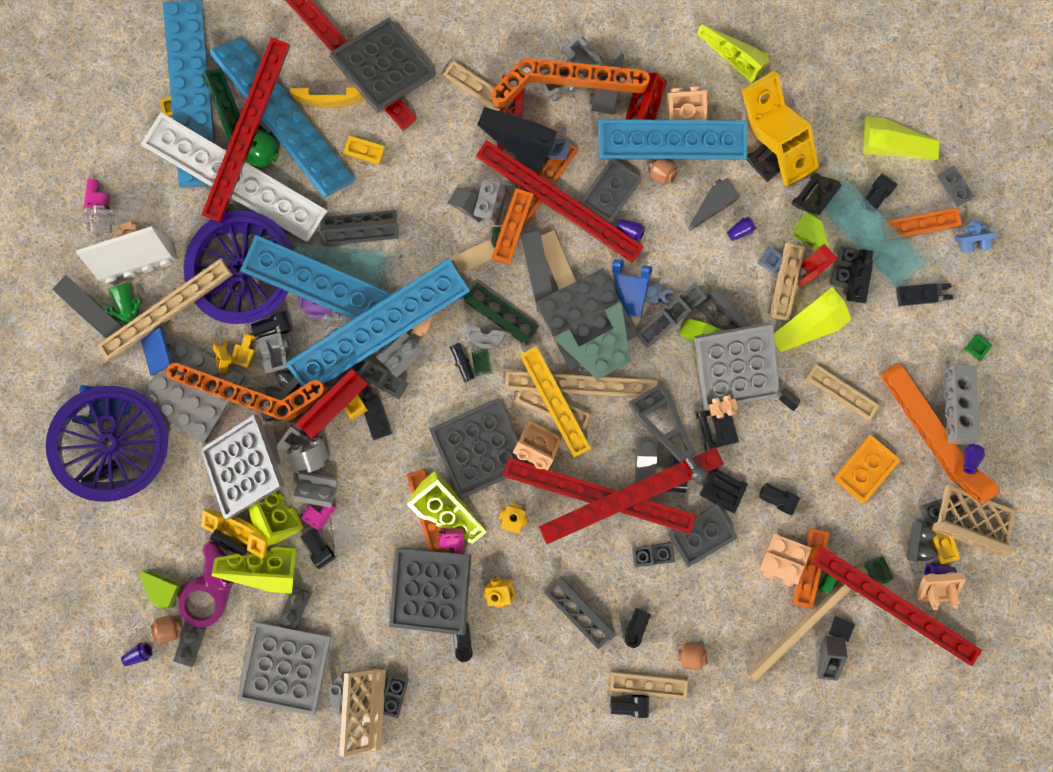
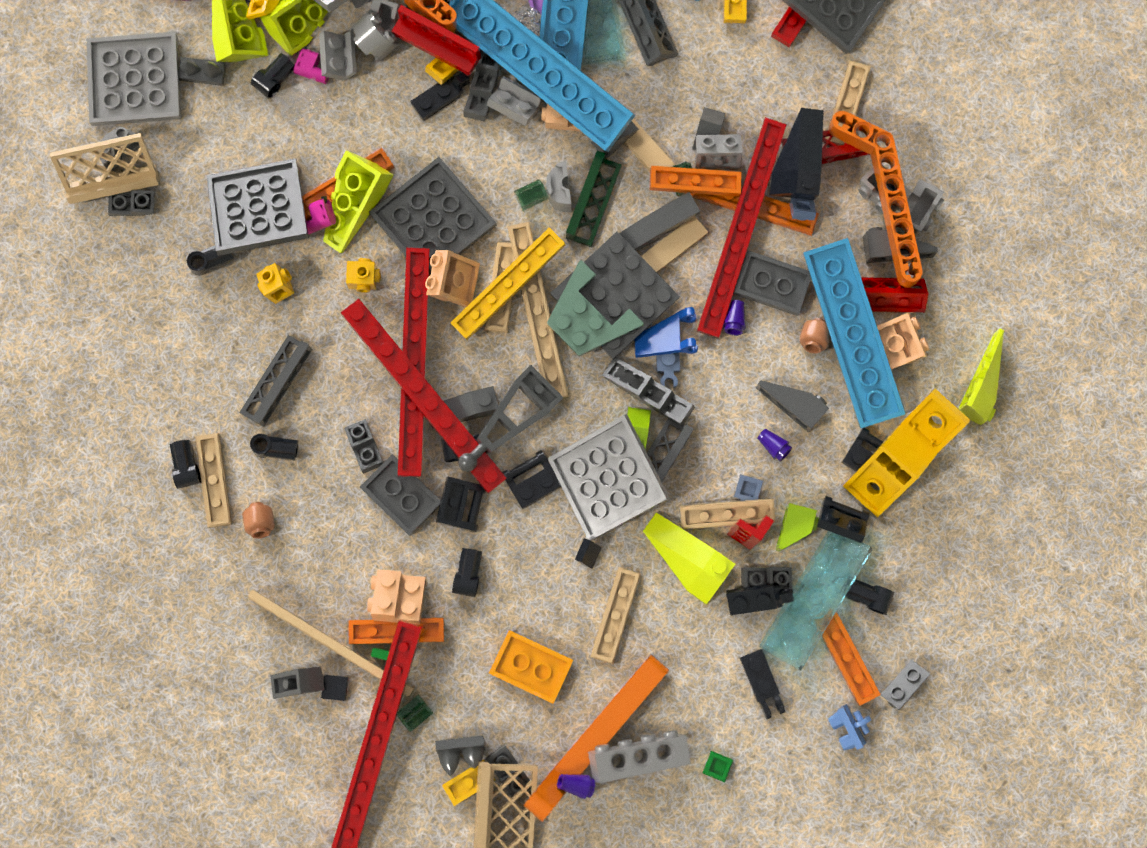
camera: 70 degrees right, 5 degrees down
(462, 362) = (525, 173): black pin -> none
(720, 408) = (557, 479): light nougat piece -> none
(894, 139) = (941, 596): neon yellow wedge -> none
(937, 568) = (432, 787): dark purple cone -> none
(940, 588) = (411, 788): light nougat plate -> none

